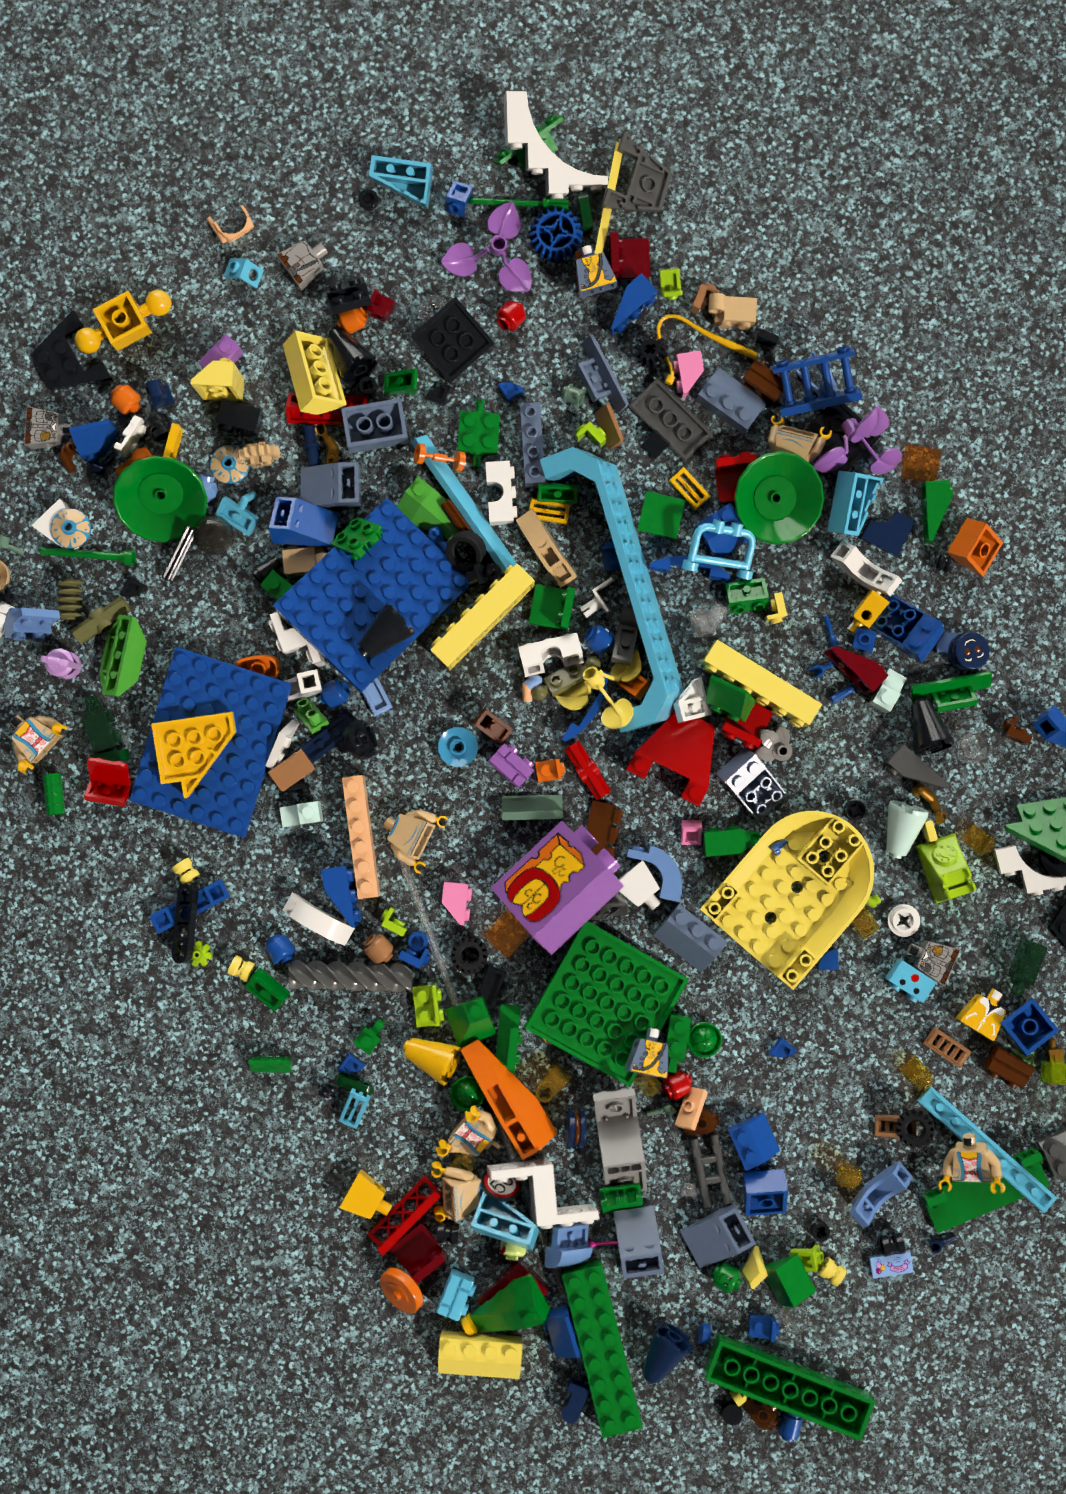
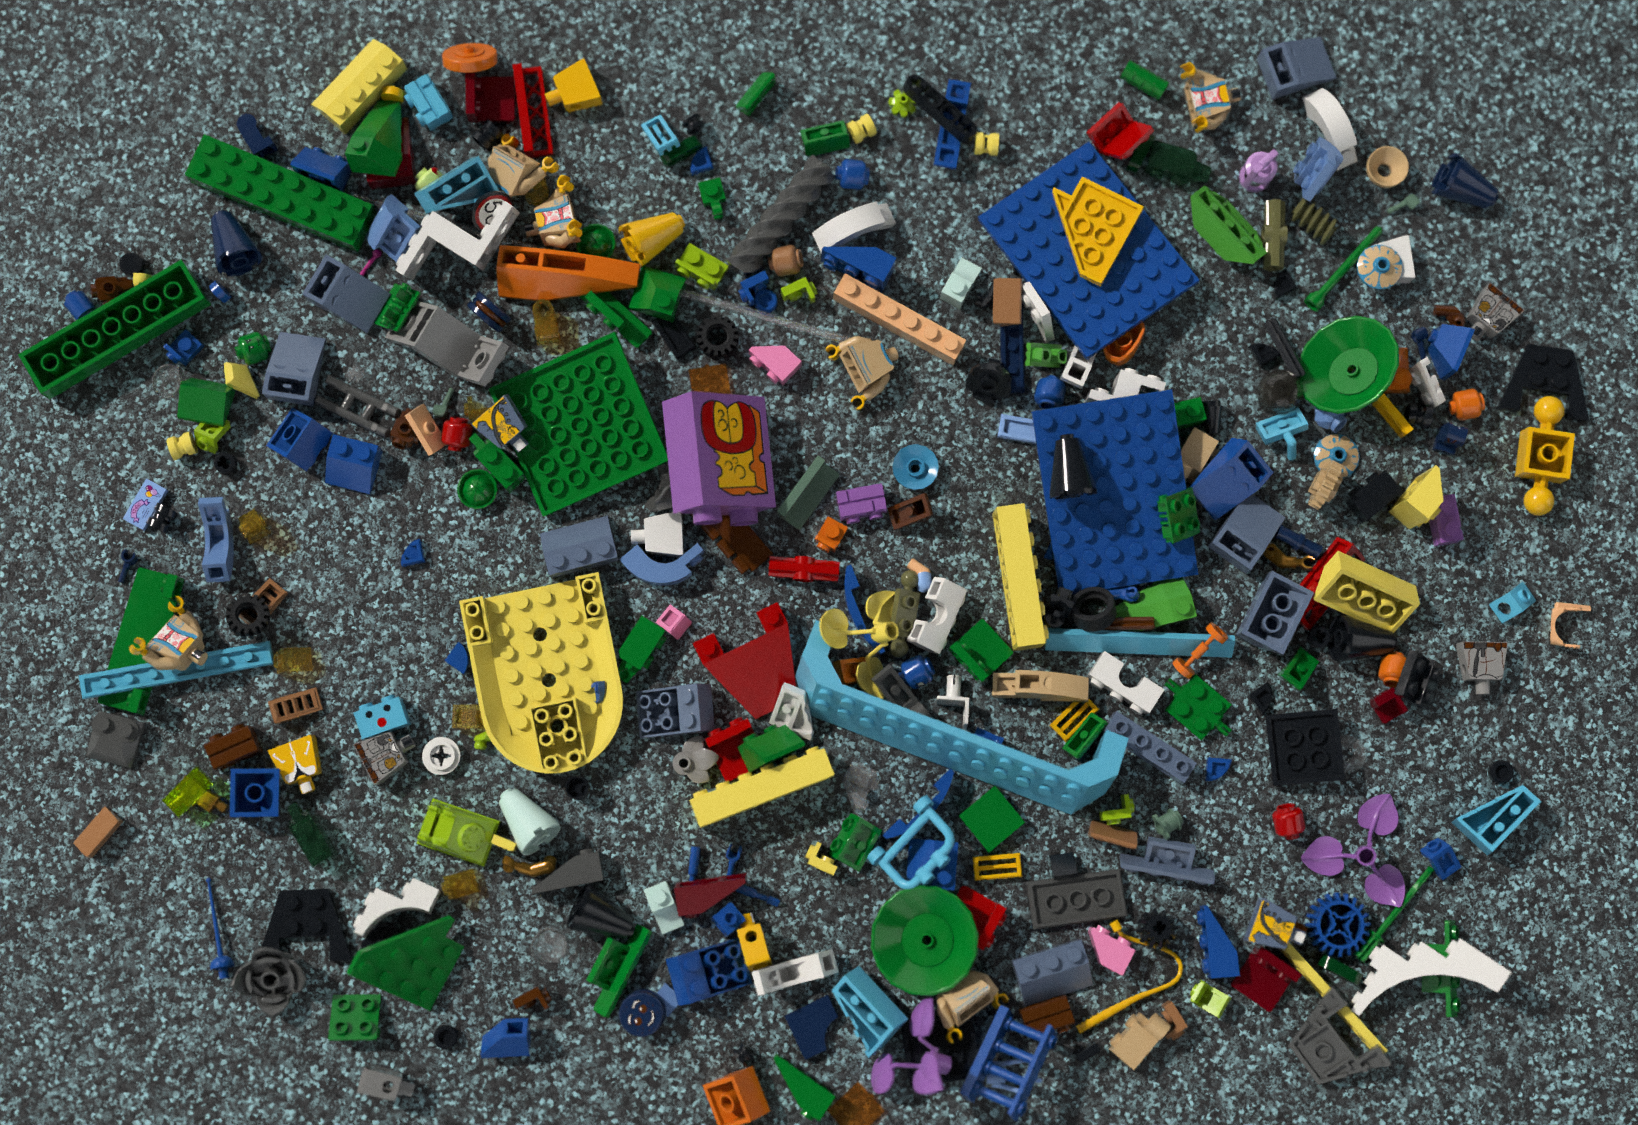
camera: 120 degrees right, 5 degrees down
(193, 566) = (1263, 353): none -> black tile

